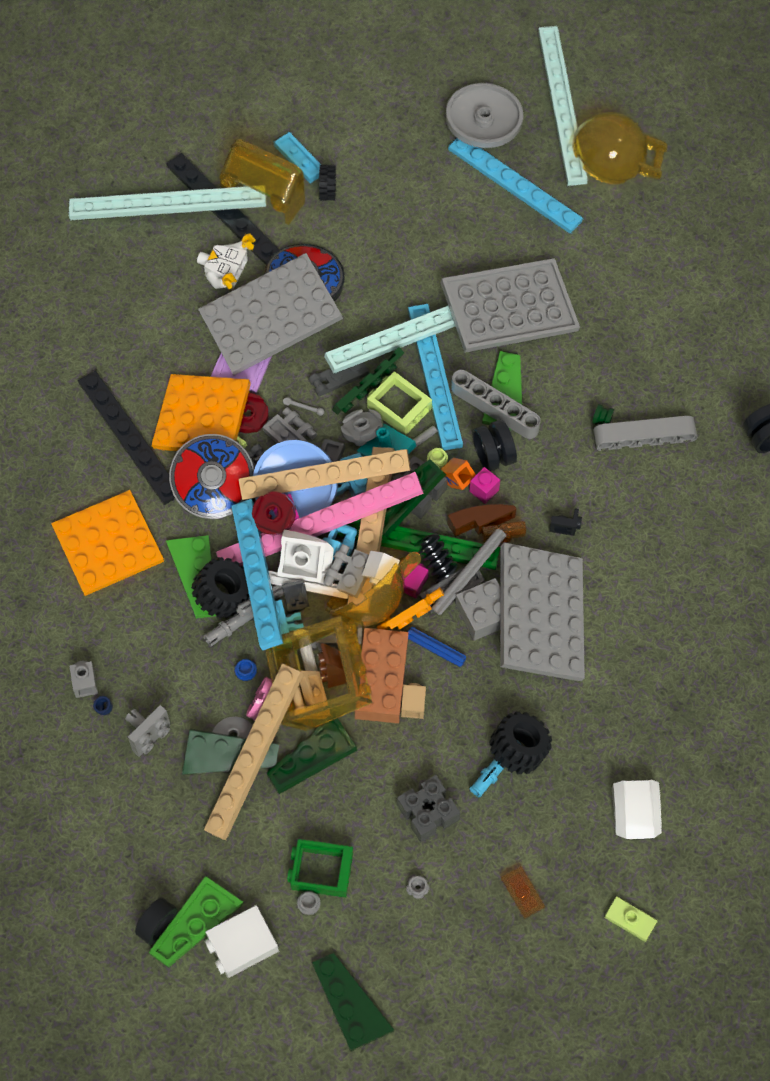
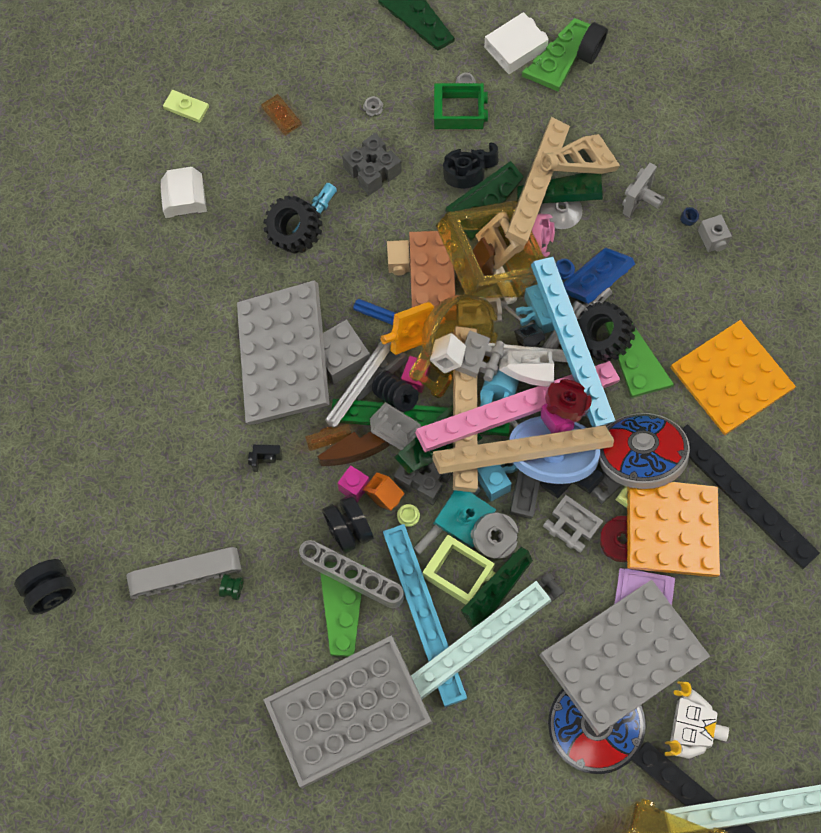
camera: 175 degrees right, 5 degrees up
(179, 789) = (595, 147): none -> tan plate
(215, 649) = (598, 275): none -> blue plate
(287, 401) = (581, 562): light grey hinge -> none
(316, 795) = (467, 168): none -> black piece
(441, 521) = (393, 426): none -> light grey hinge

